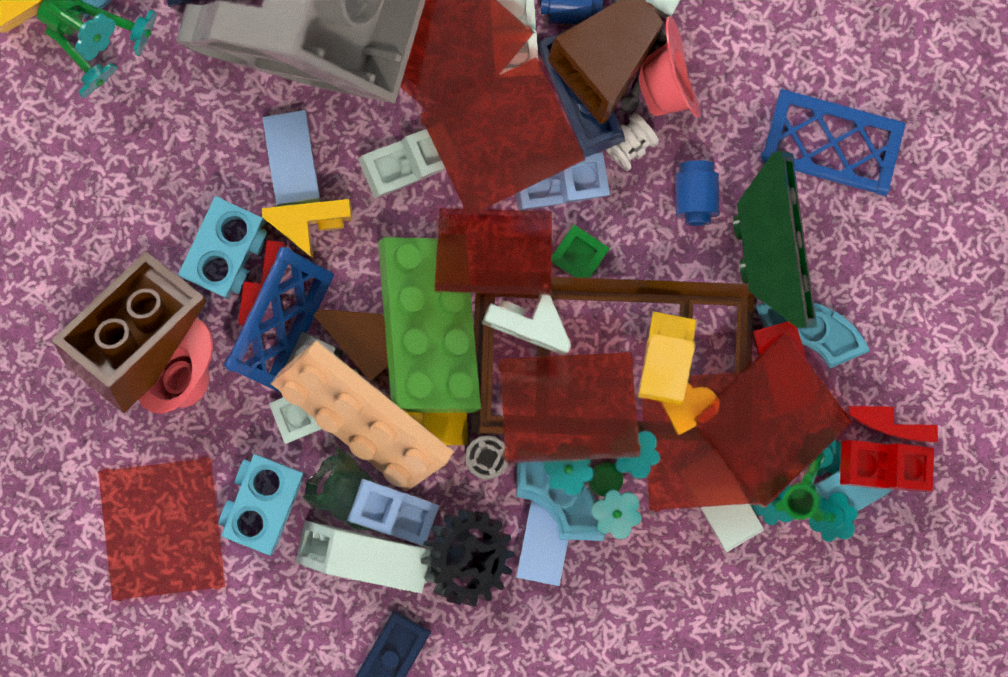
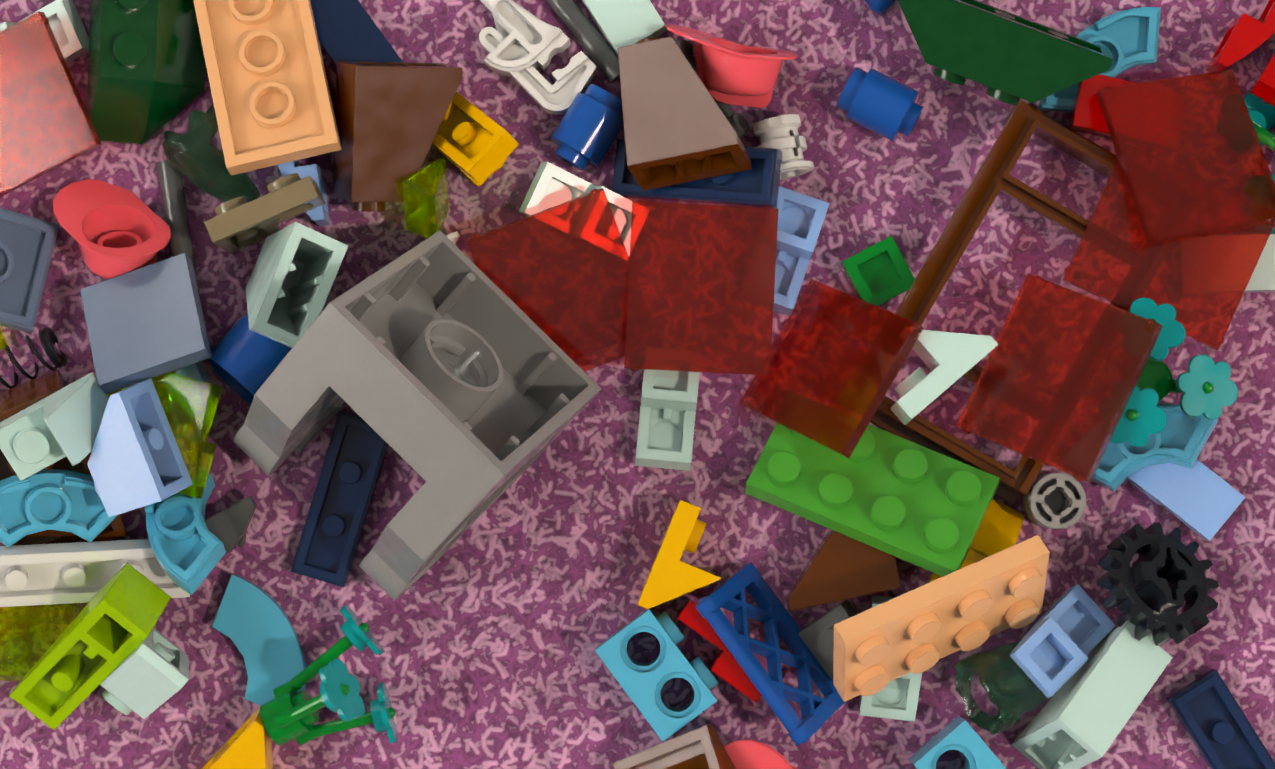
camera: 55 degrees left, 0 degrees up
(291, 158) = (595, 540): light blue slope -> none
(667, 358) = (1062, 234): yellow slope -> none
(694, 402) = (1121, 244): light orange tile -> none

